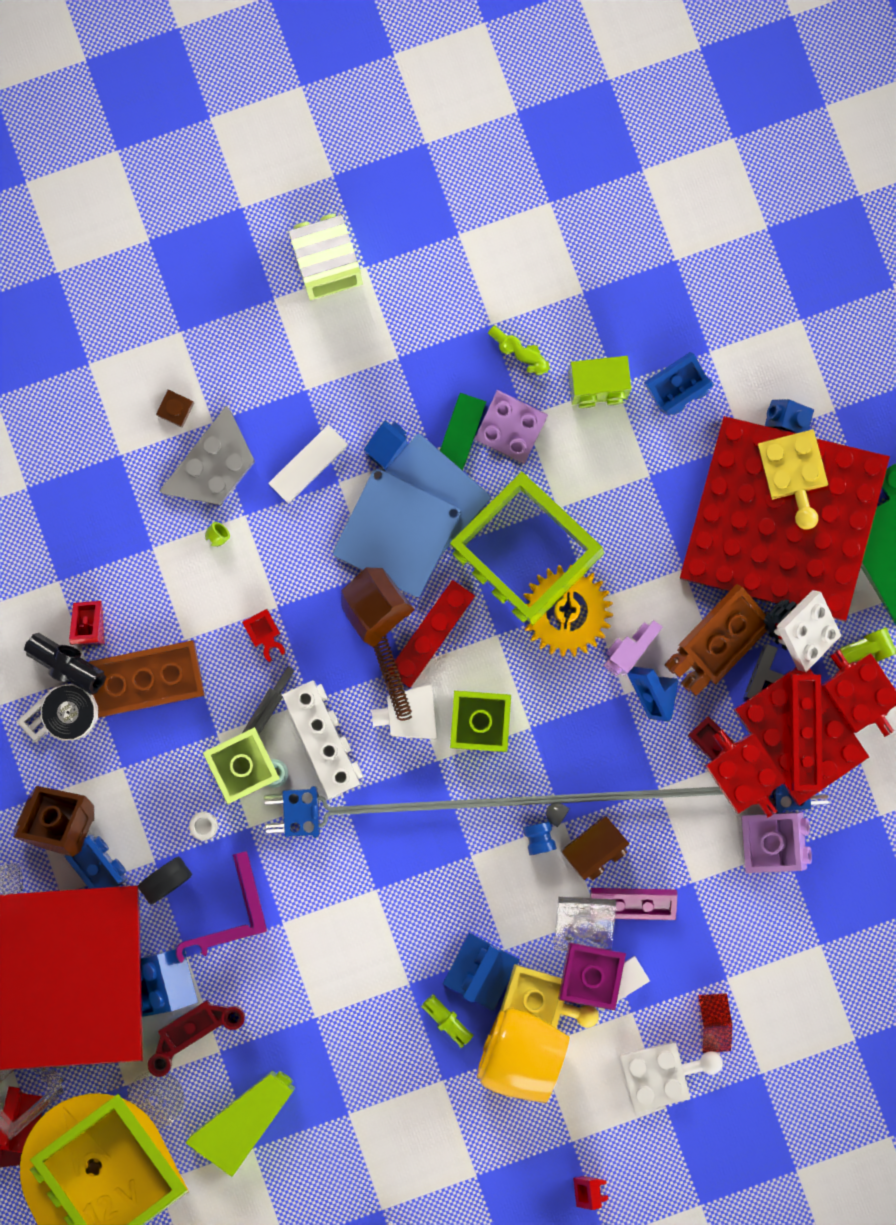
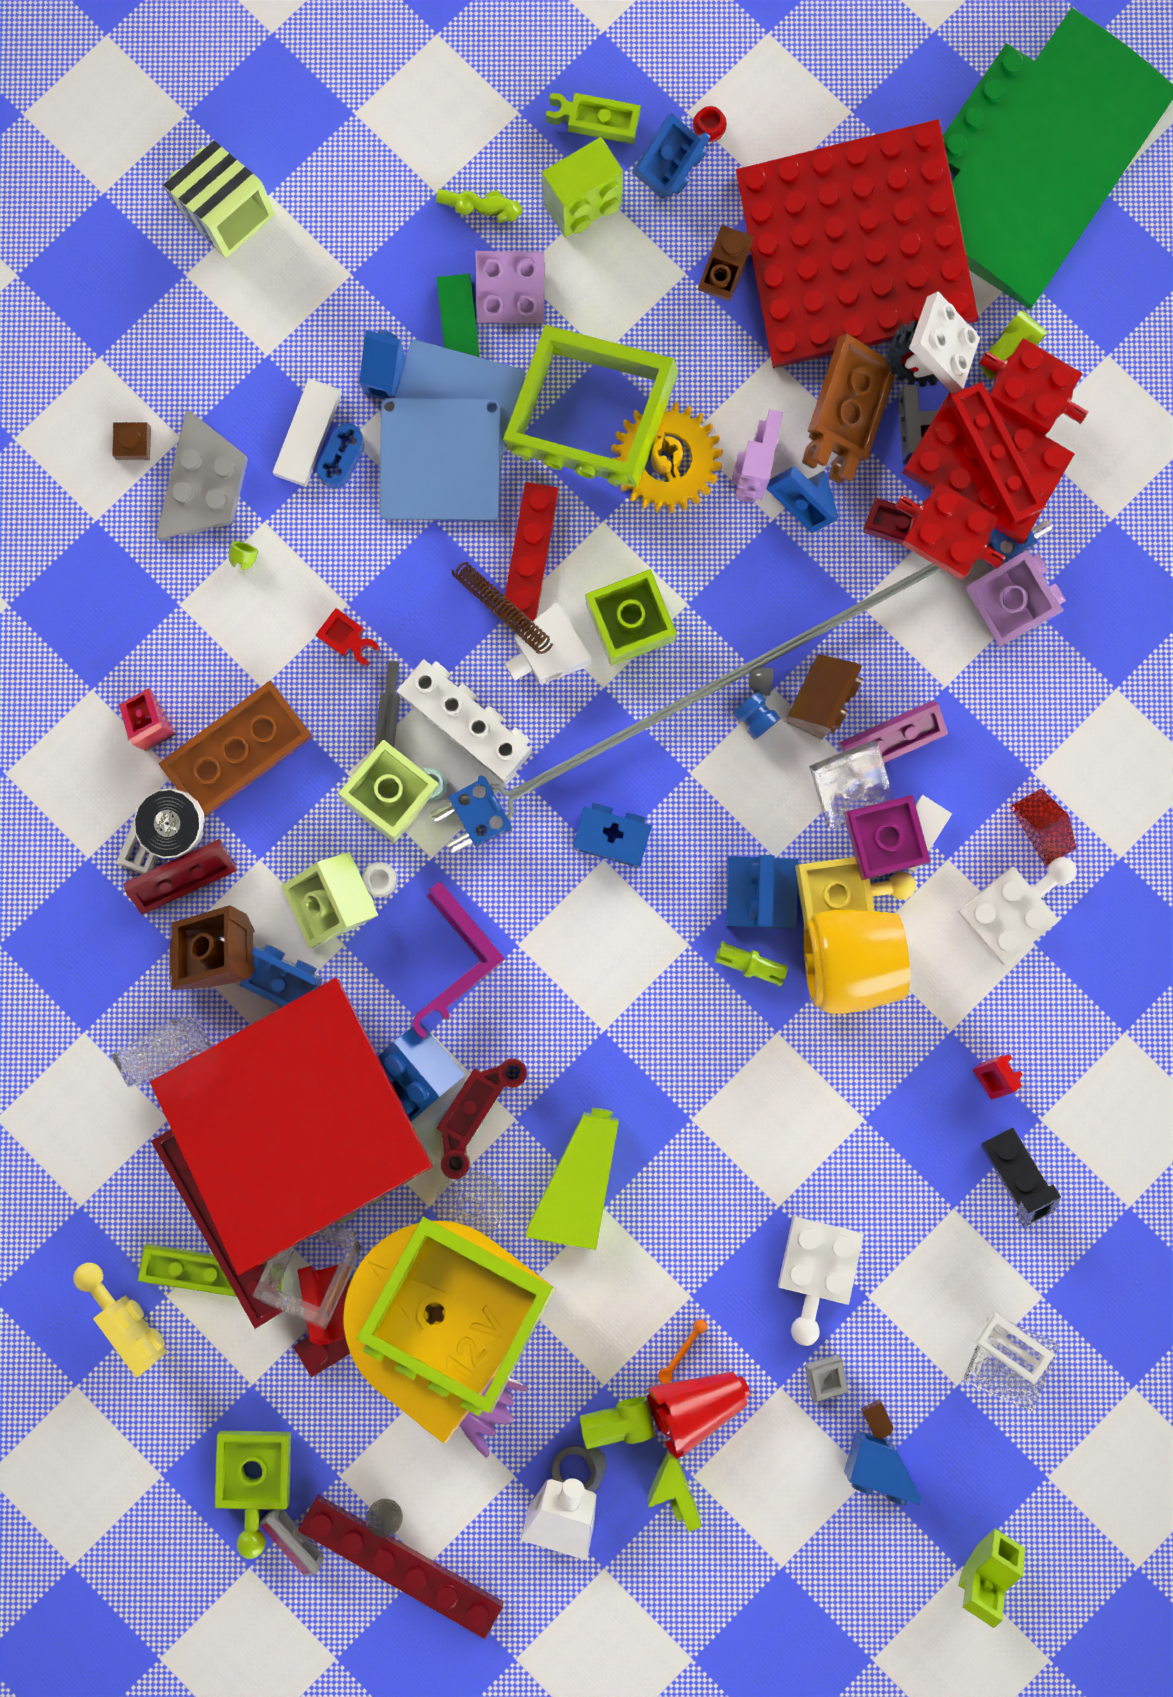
camera: 25 degrees left, 0 degrees up
(58, 754) = (180, 876): none -> dark red plate
(64, 663) = (138, 771): black piece -> none
(159, 824) = (329, 899): none -> yellowish green slope
(164, 880) = (363, 957): black tyre -> none
(329, 499) = (348, 459): none -> blue beam
(373, 873) = (592, 841): none -> blue brick
(374, 604) = (452, 546): reddish brown slope -> none
(638, 327) = (596, 116): none -> lime plate
(678, 489) = (726, 263): none -> reddish brown slope
(721, 371) = (711, 121): none -> red plate
(789, 416) = (805, 134): blue bracket -> none
(794, 467) = (841, 179): light yellow plate -> none

